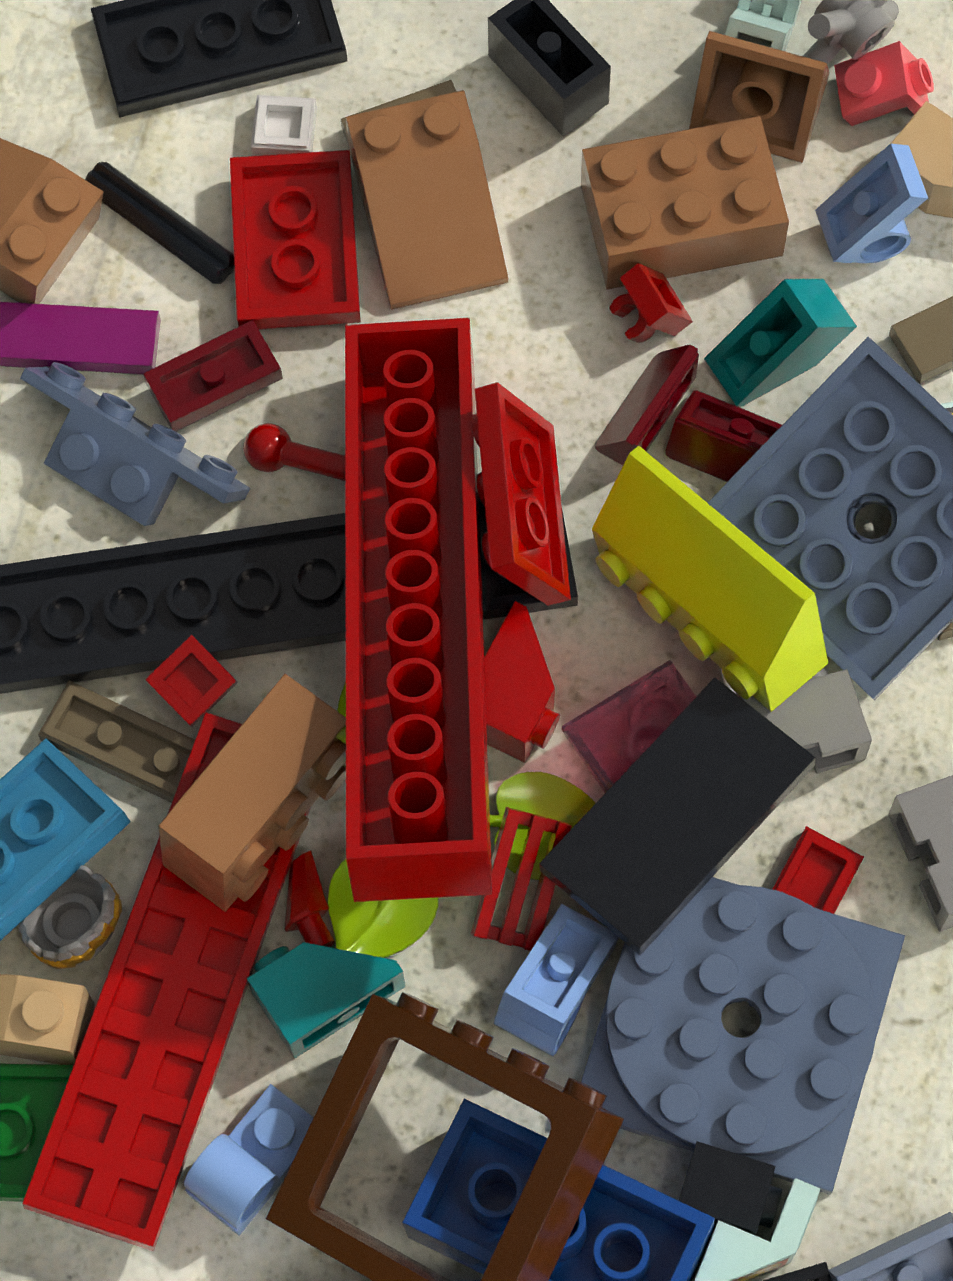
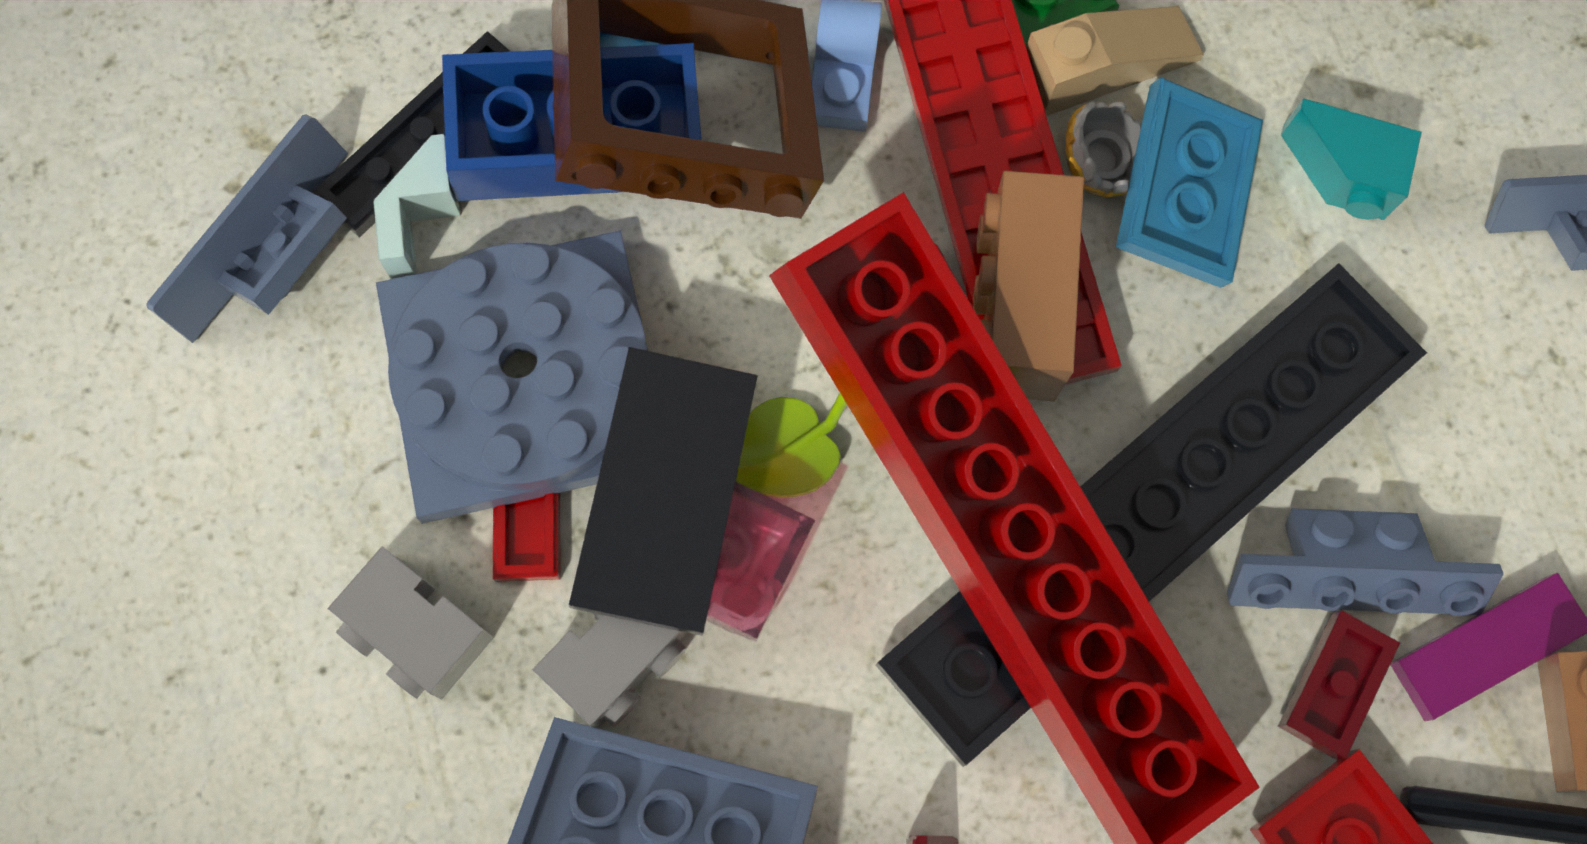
camera: 140 degrees right, 5 degrees up
(118, 740) = (1177, 318): dark tan tile -> none
(191, 681) = (1151, 384): red tile -> none
(271, 448) = (1238, 653): red bar -> none
(319, 990) = (879, 177): teal slope -> none
(518, 689) = (879, 544): red slope -> none
(520, 494) = (985, 702): red plate -> none
(544, 892) = (758, 342): red tile -> none
(554, 980) = (693, 309): light blue plate -> none
(709, 583) = (762, 720): neon yellow slope -> none
(731, 1188) = (455, 225): black brick -> none

